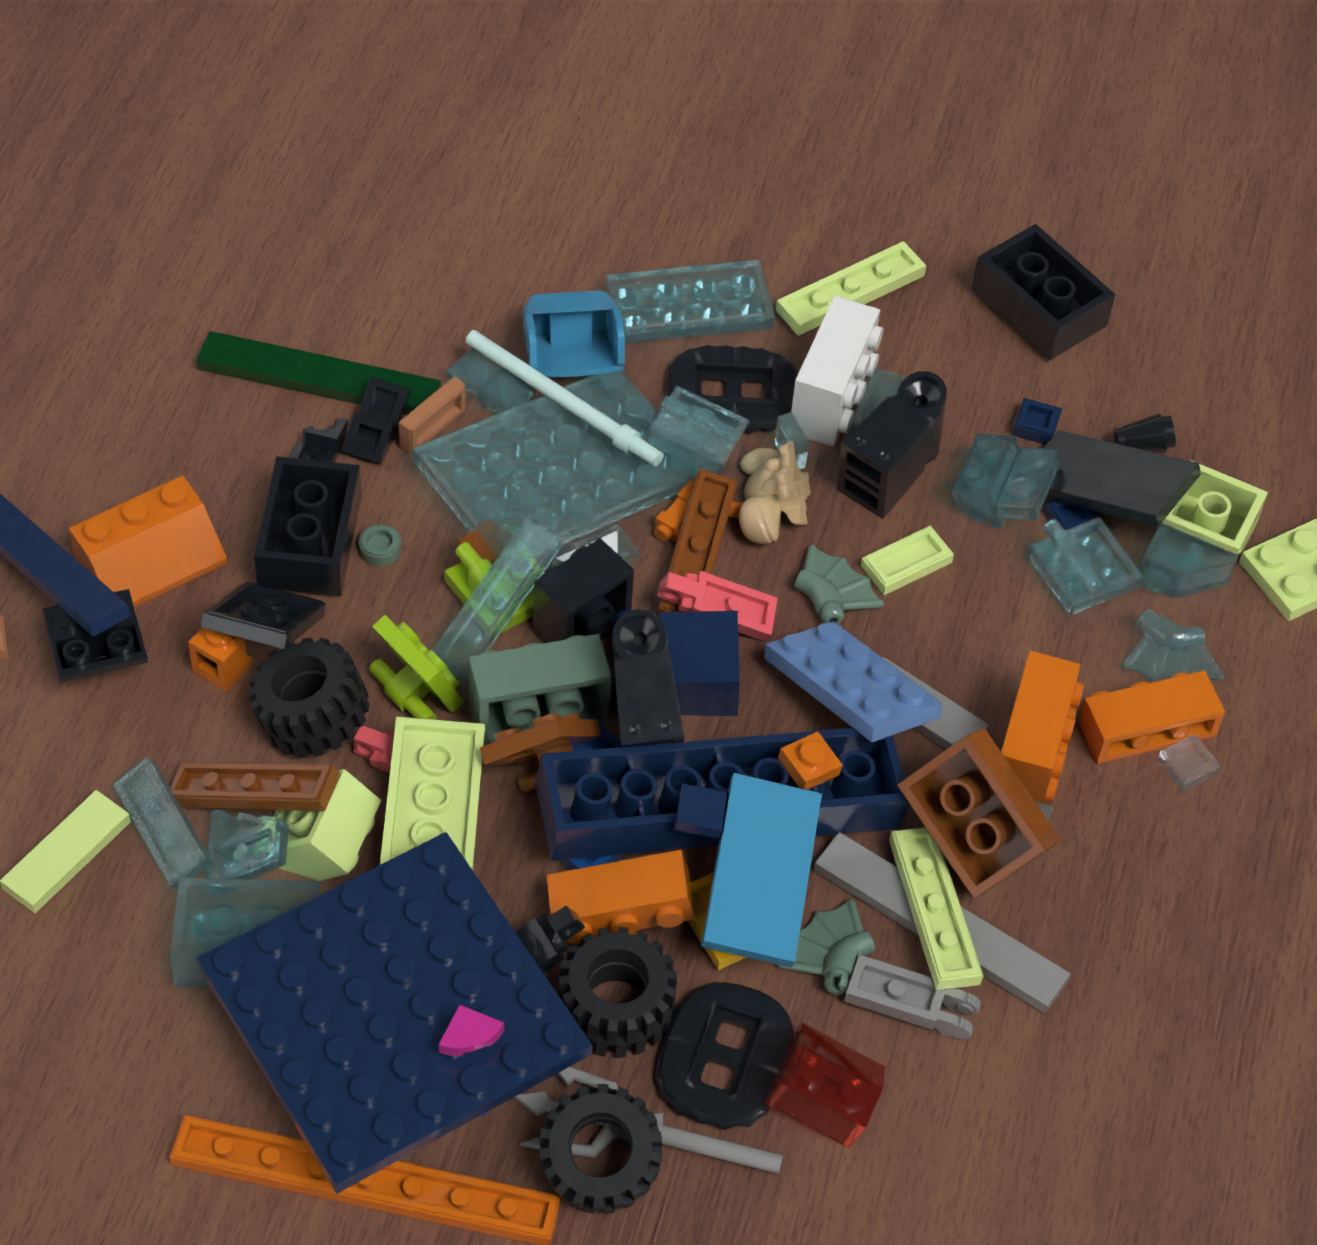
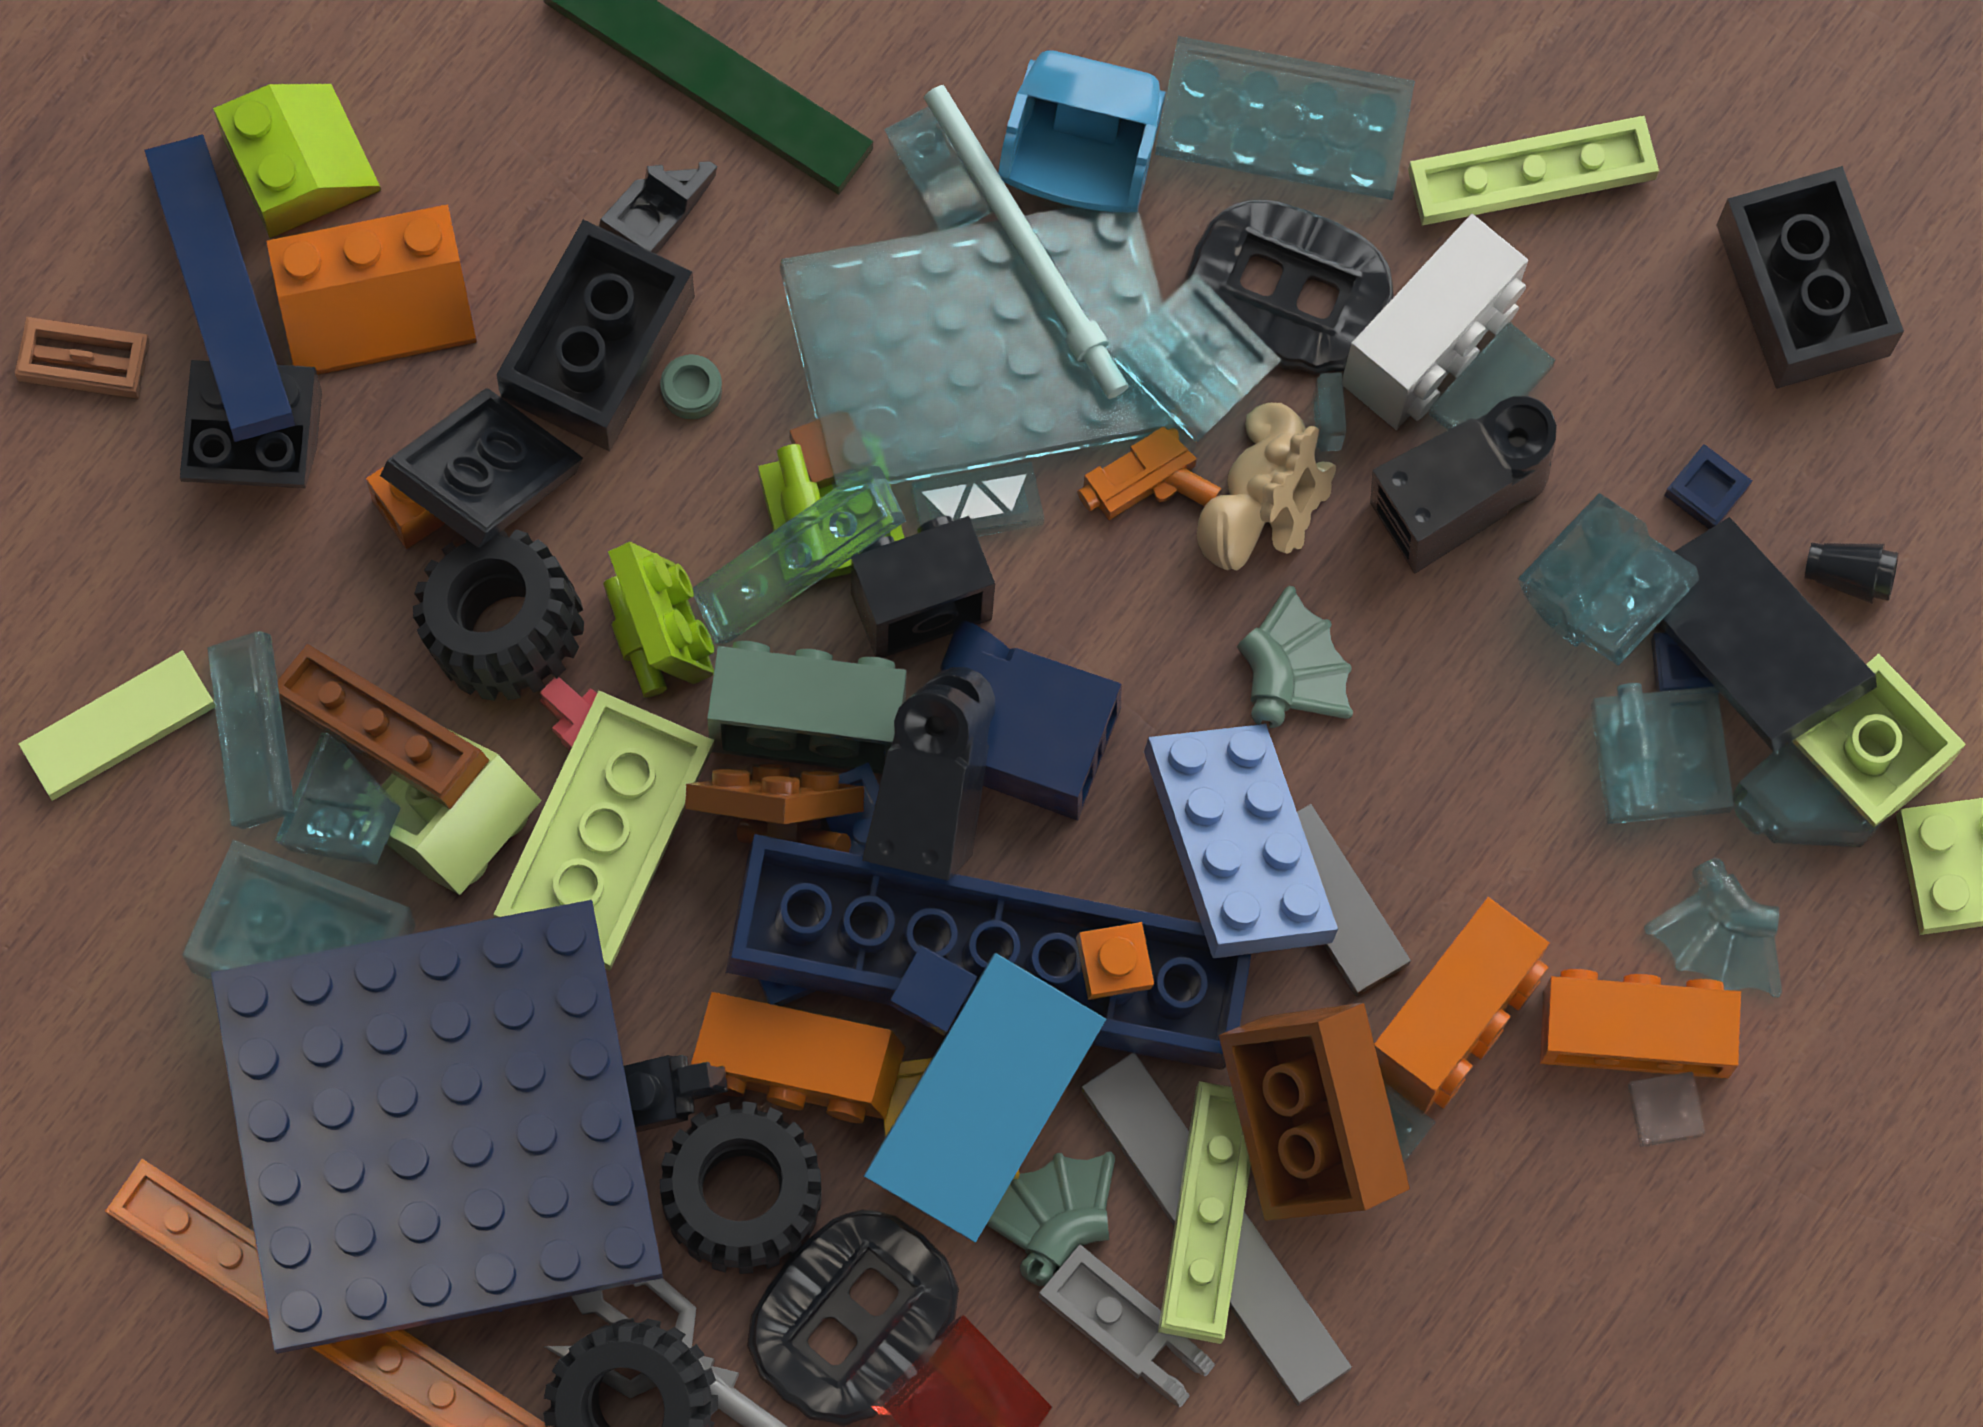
camera: 20 degrees right, 20 degrees up
(62, 486) = (295, 153): none -> lime slope
(377, 420) = (758, 181): black slope -> none
(432, 415) = (837, 201): nougat tile -> none
(469, 1032) = (507, 1209): dark pink tile -> none
(701, 528) = (1123, 543): dark orange tile -> none
(711, 593) = (1118, 649): coral hinge -> none
(907, 560) = (1416, 656): yellowish green tile -> none

